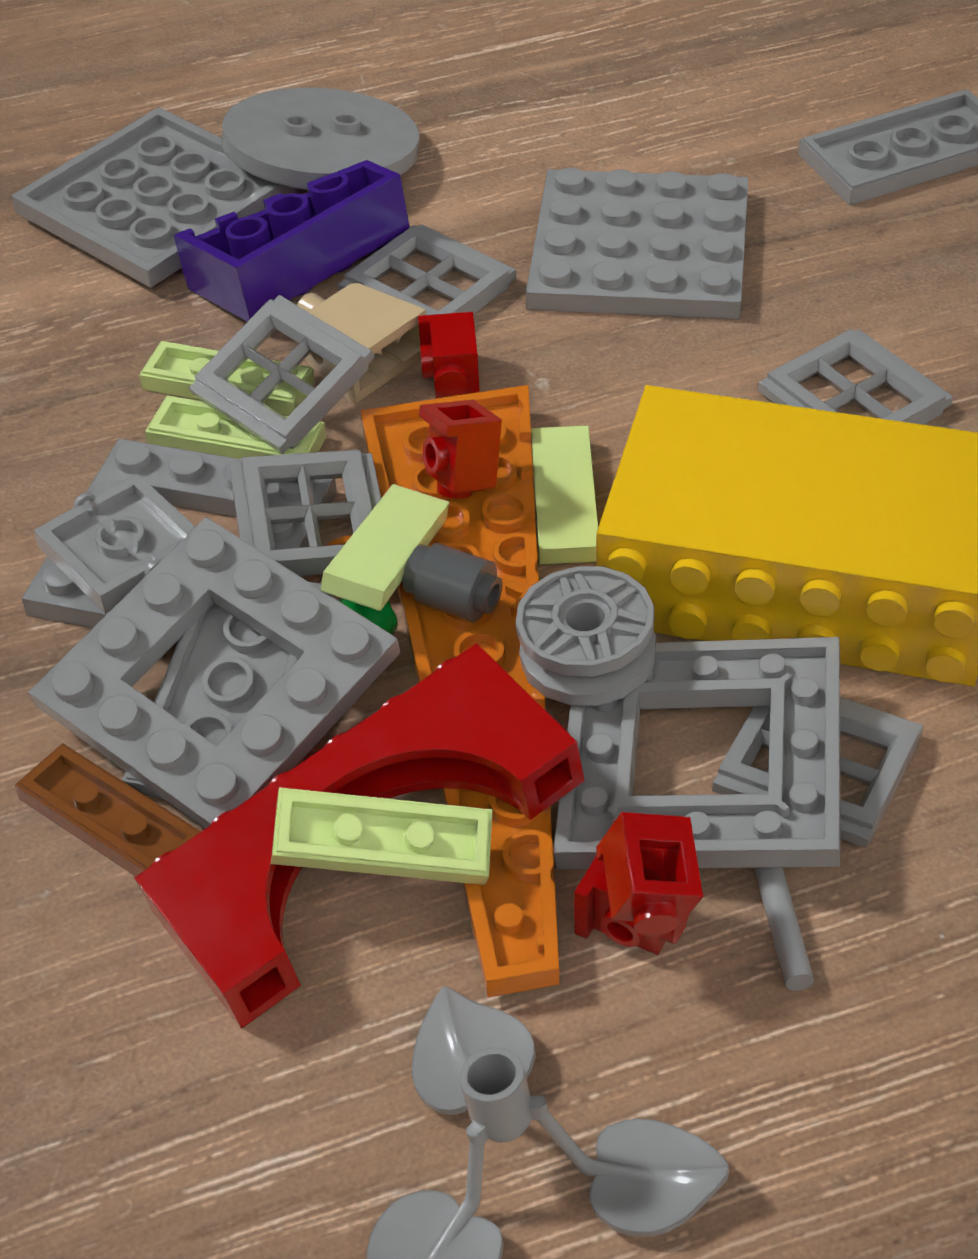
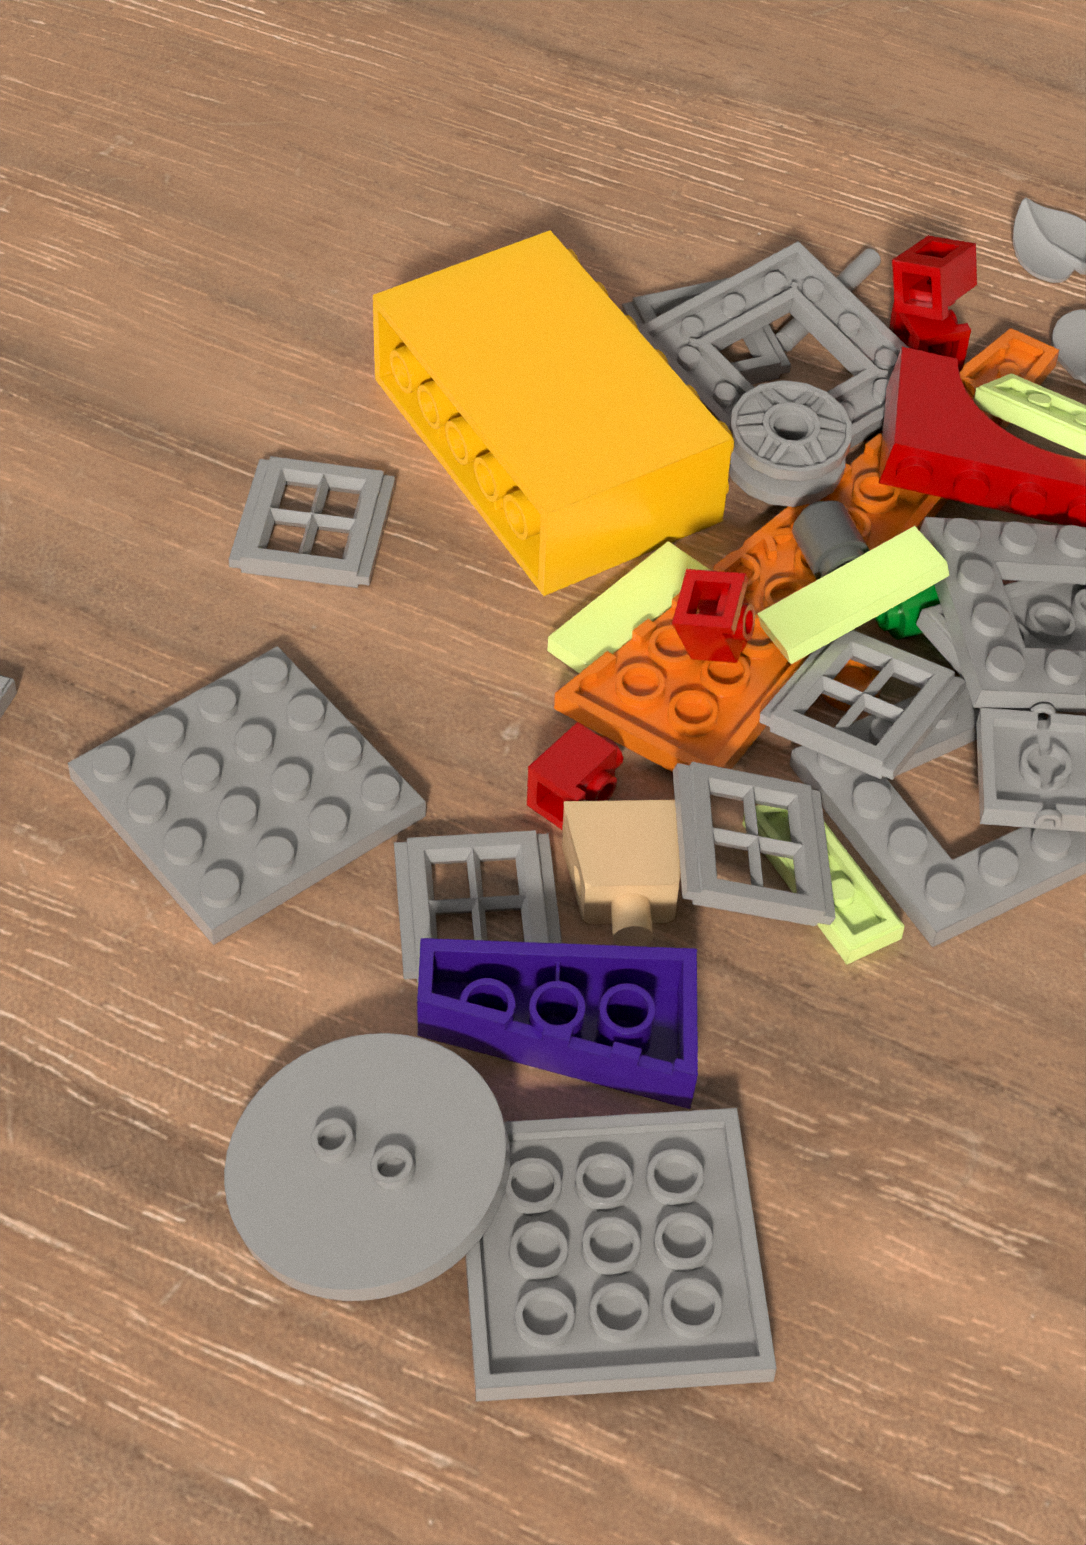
camera: 140 degrees left, 5 degrees up
(175, 365) = (781, 960): yellowish green tile -> none

